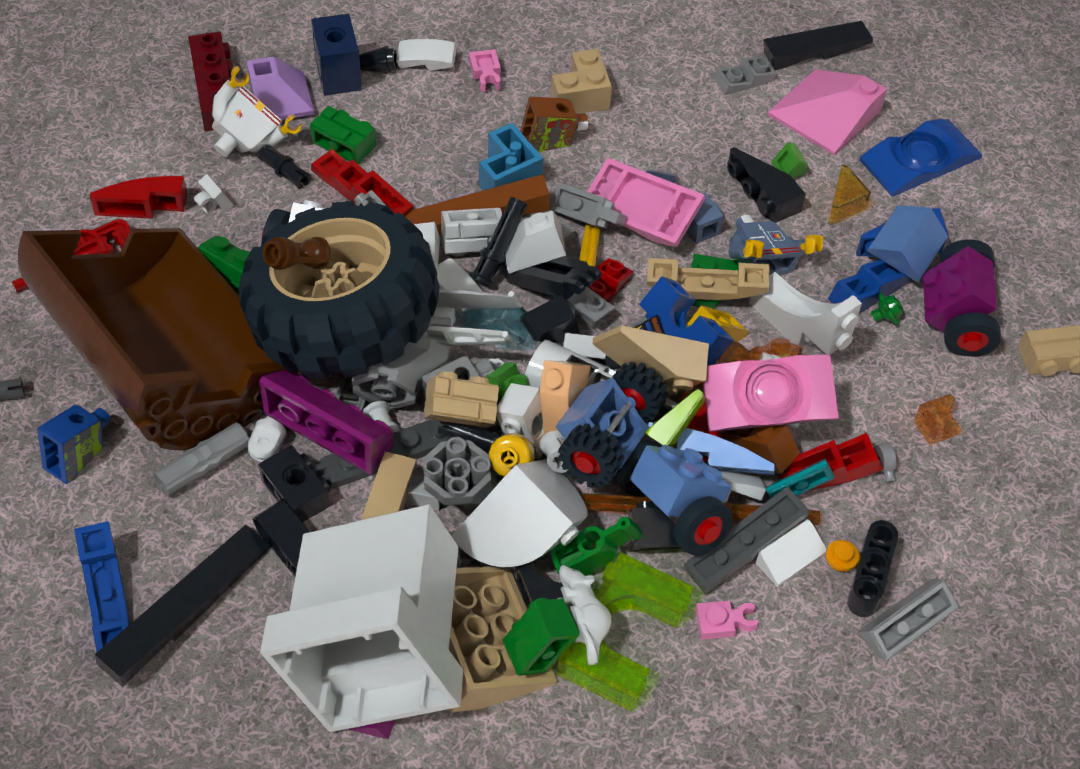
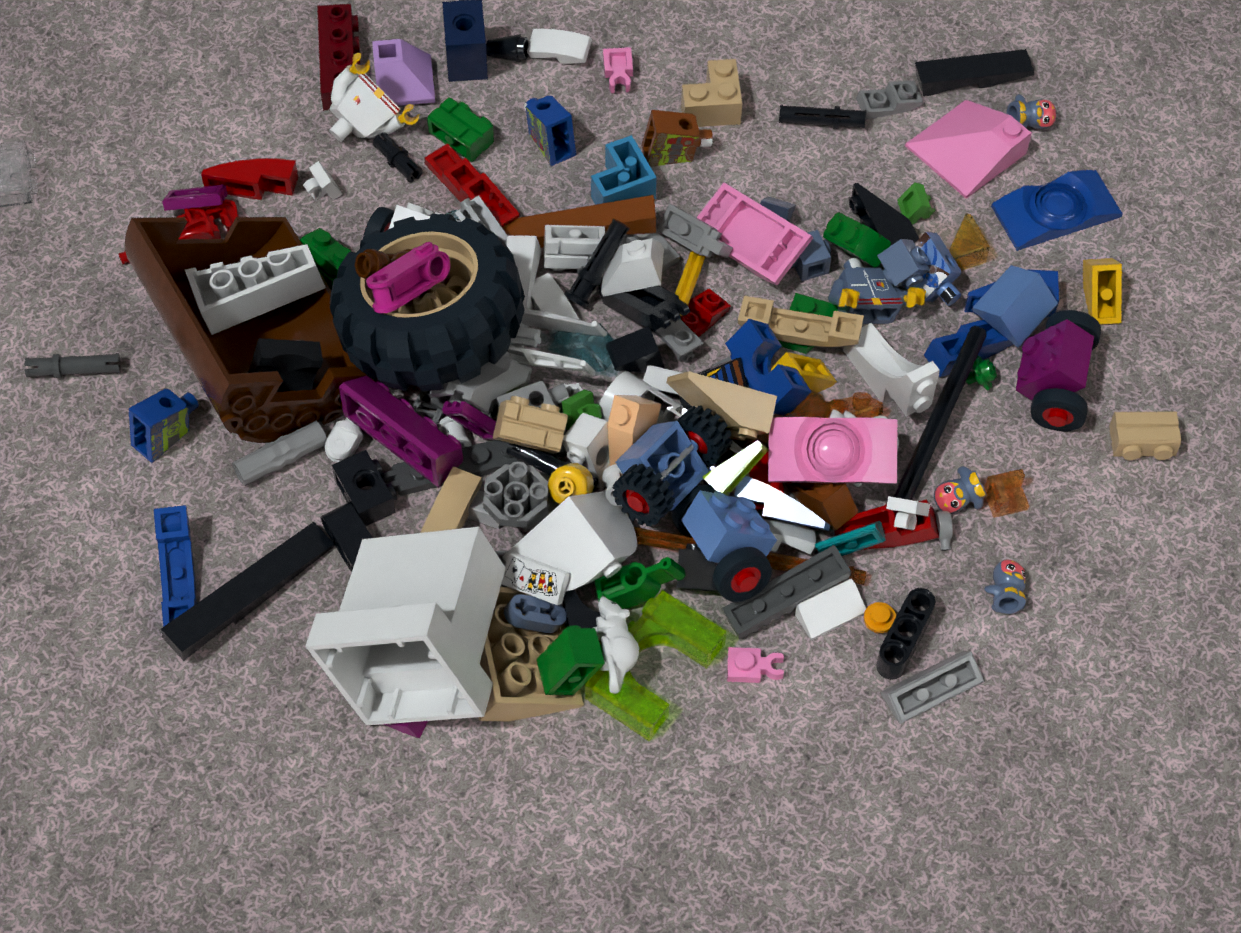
camera: 10 degrees right, 5 degrees up
(87, 219) = (195, 197): none -> magenta tile
(157, 294) = (253, 286): none -> white wedge
(209, 359) = (292, 359): none -> black brick
(320, 261) = (408, 277): none -> dark pink piece
(397, 403) = (470, 418): none -> magenta tile
(431, 126) = (549, 117): none -> blue torso
(490, 555) = (535, 578): none -> white tile
(493, 588) = (535, 616): none -> sand blue beam
(686, 94) = (857, 117): none -> black pin
(745, 197) = (855, 239): none -> green brick
(797, 213) = (904, 263): none -> sand blue brick
(818, 215) = (942, 270): none -> medium blue torso
(852, 445) = (907, 511): none -> white tile
(859, 353) = (941, 413): none -> black axle
(884, 73) = (1035, 114): none -> animal
(893, 424) = (959, 492): none -> animal
(963, 510) = (1008, 587): none -> sand blue animal
(984, 219) = (1103, 289): none -> yellow slope

